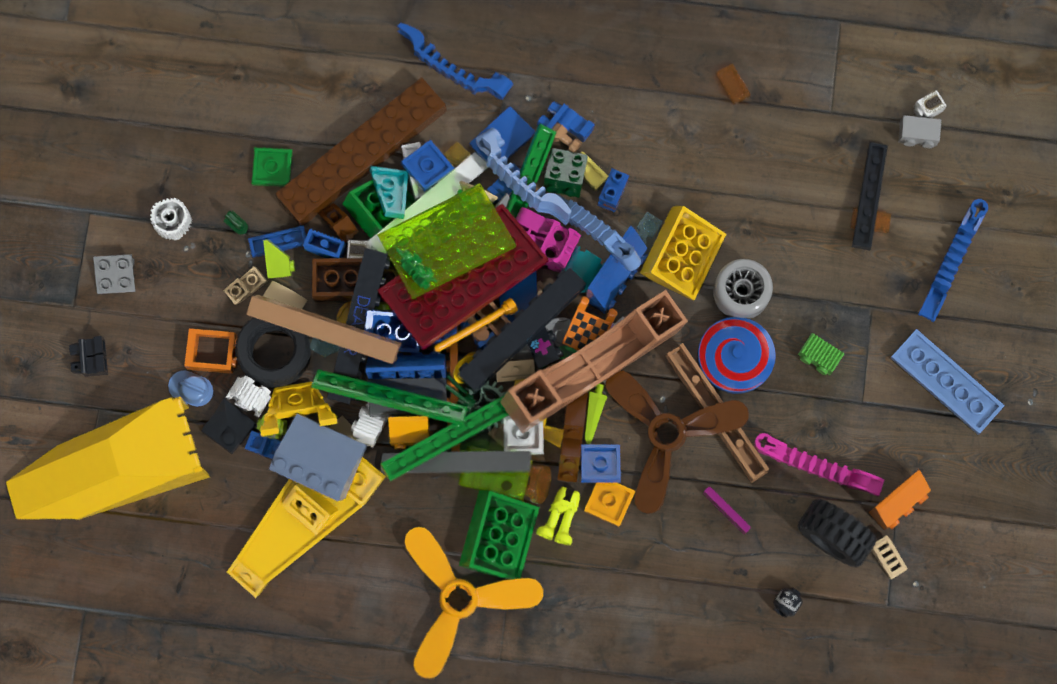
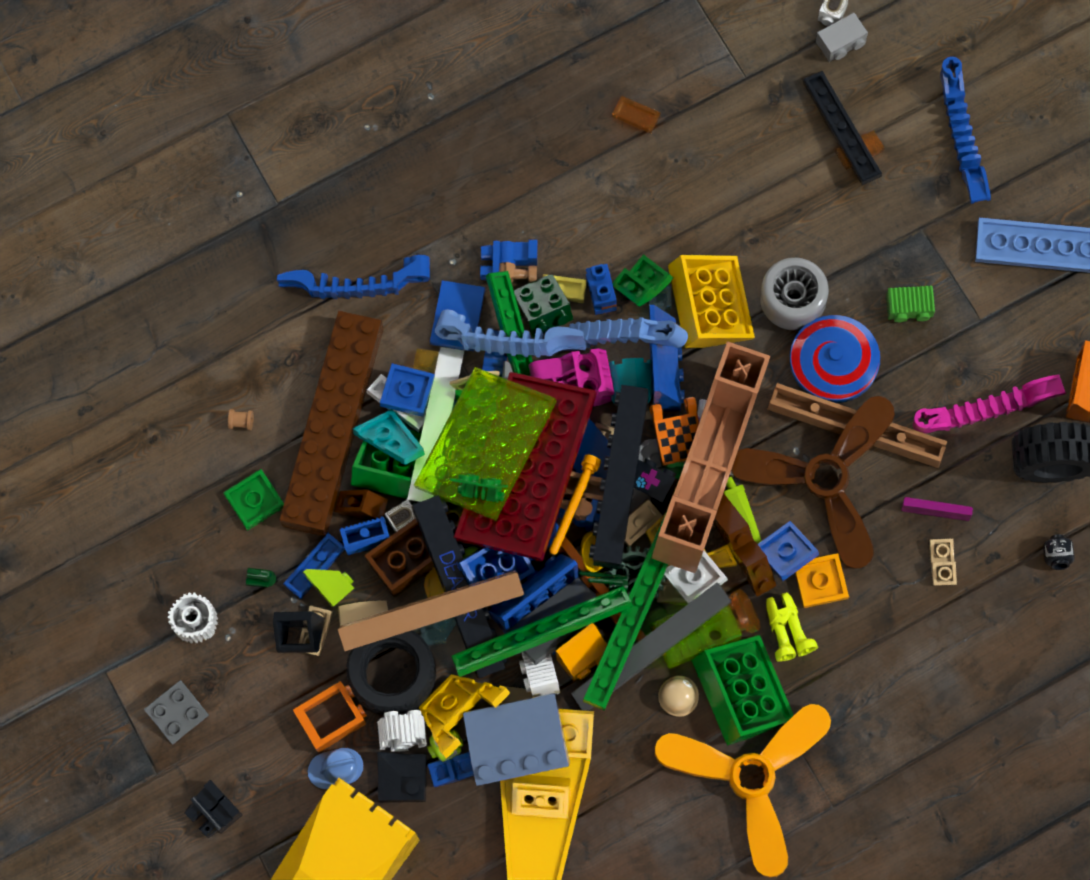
camera: 30 degrees left, 5 degrees down
(244, 282) = (284, 620): none -> black tile
(303, 105) = (240, 419): none -> medium nougat bush
(452, 508) = (678, 696): none -> tan helmet
(645, 205) = (642, 281): none -> green slope
(703, 549) = (942, 562): none -> tan slope

